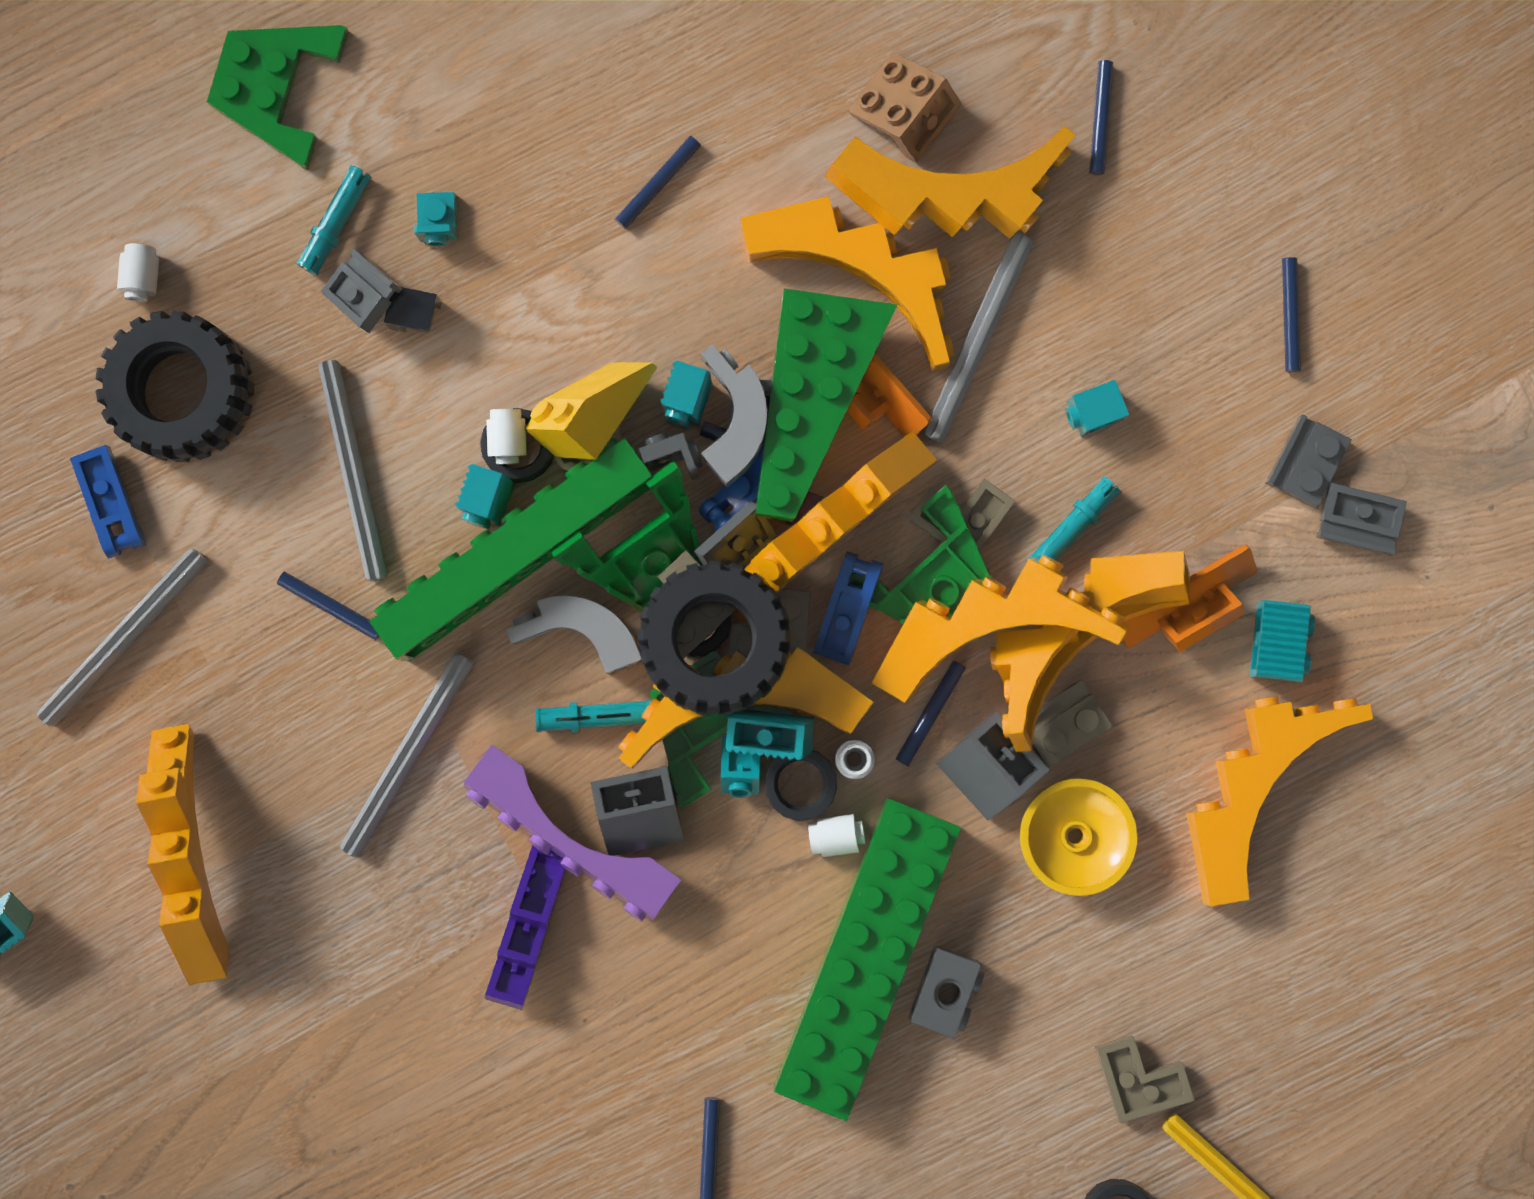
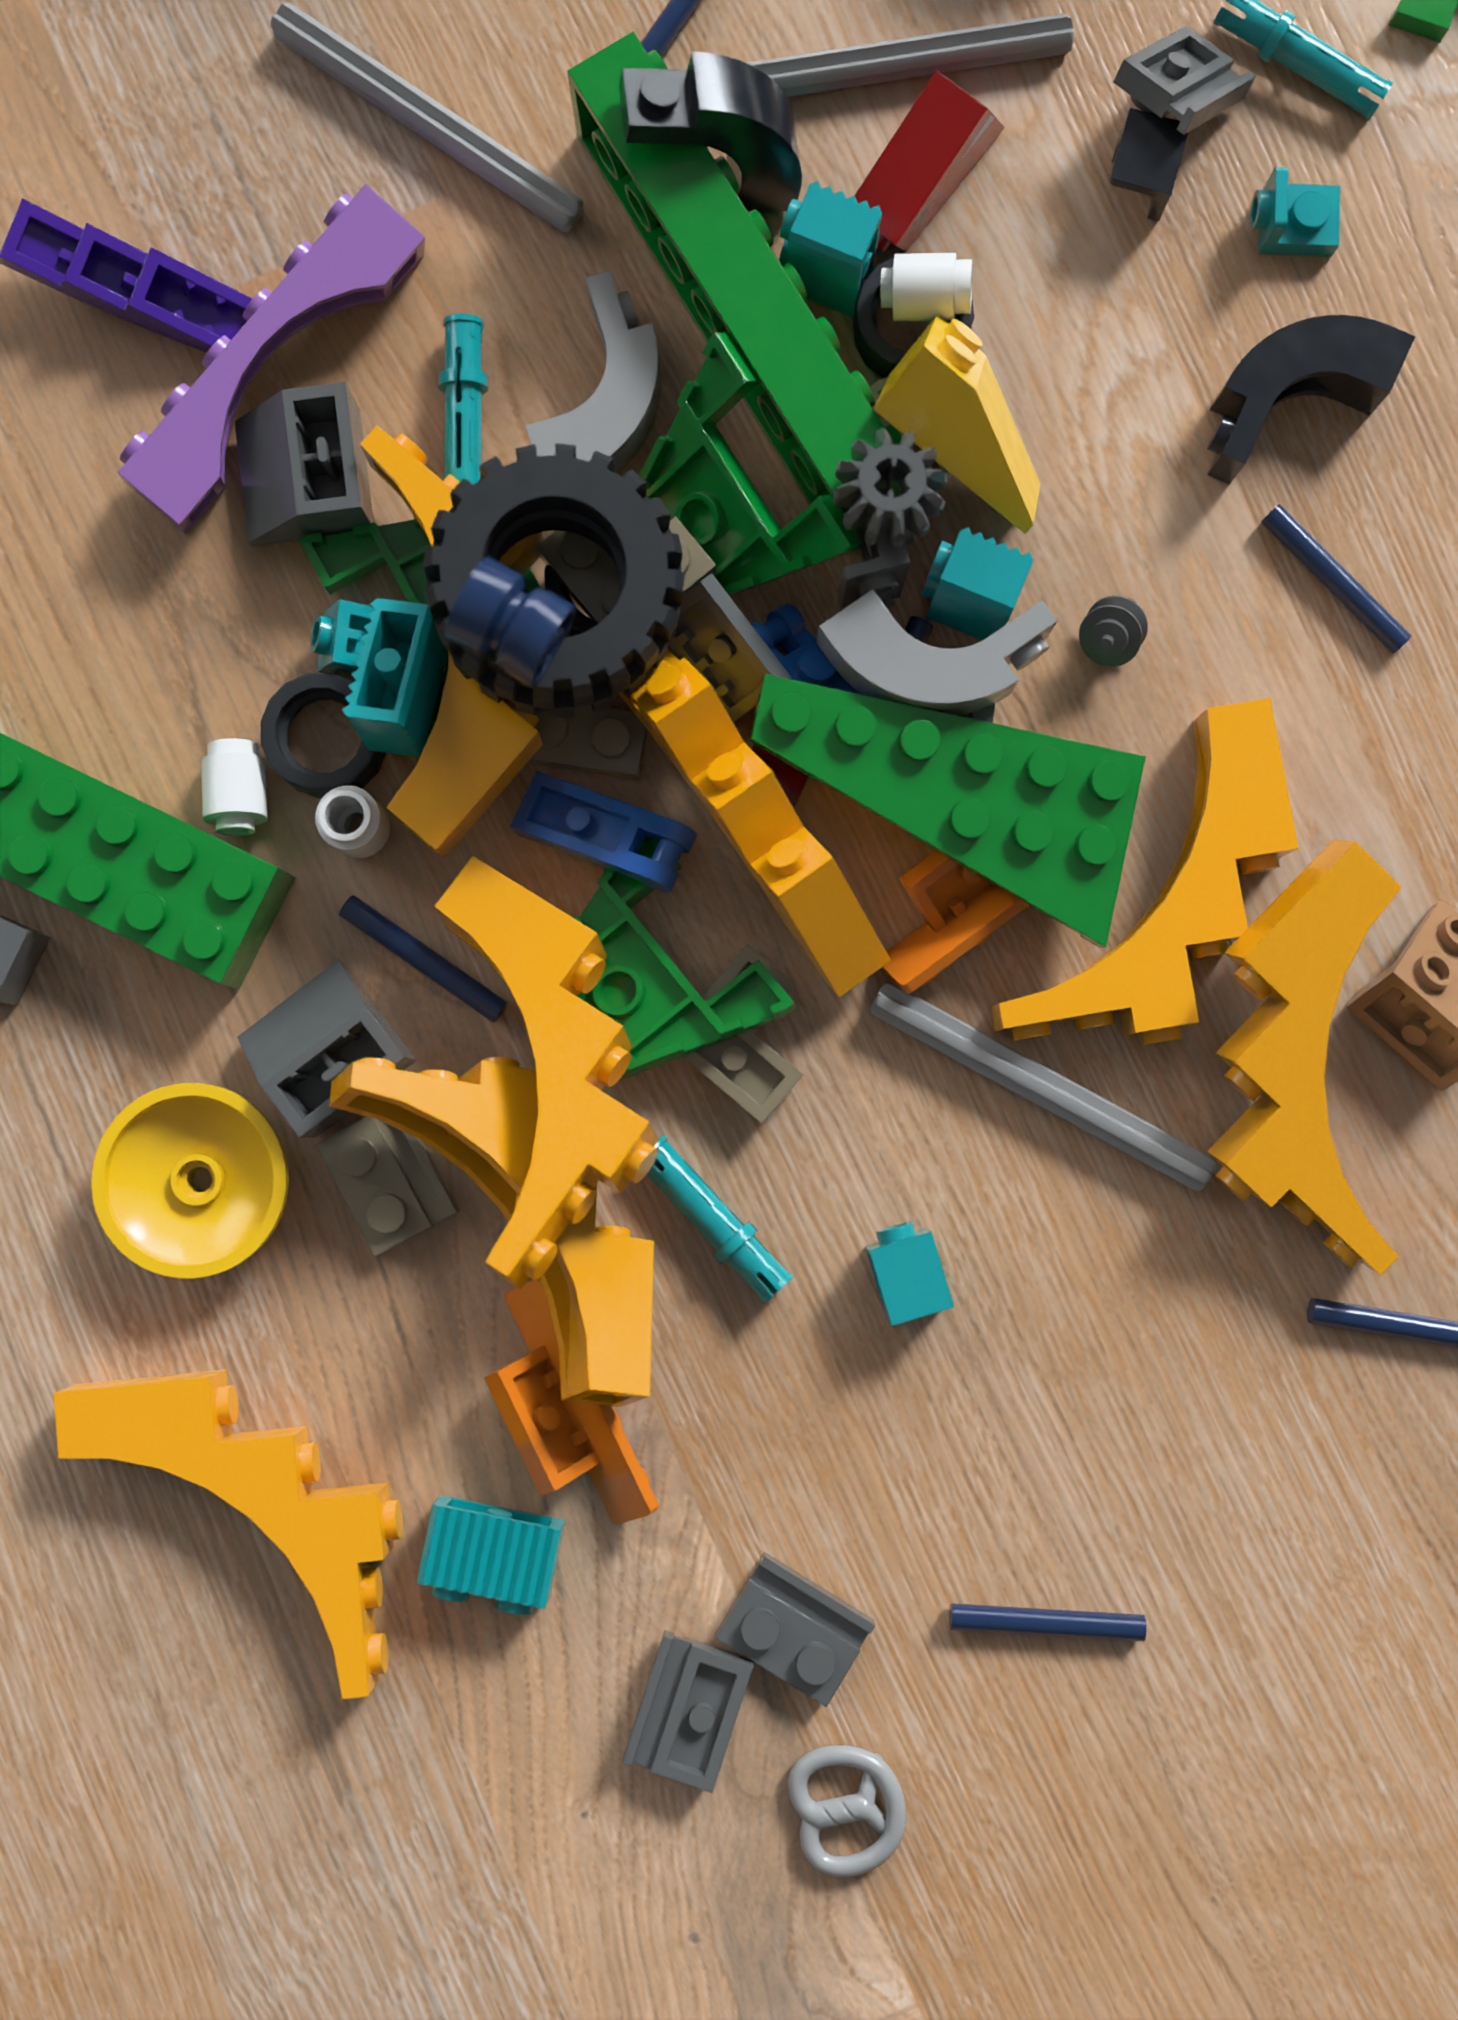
camera: 95 degrees right, 0 degrees up
(414, 568) = (724, 108): none -> black arch
(422, 443) = (927, 160): none -> red slope
(524, 189) = (1322, 356): none -> black arch
(644, 459) = (889, 463): none -> dark grey gear
(702, 312) = (1113, 631): none -> dark grey wheel
(756, 650) = (500, 617): none -> dark blue wheel
(1408, 422) = (848, 1809): none -> light grey piece

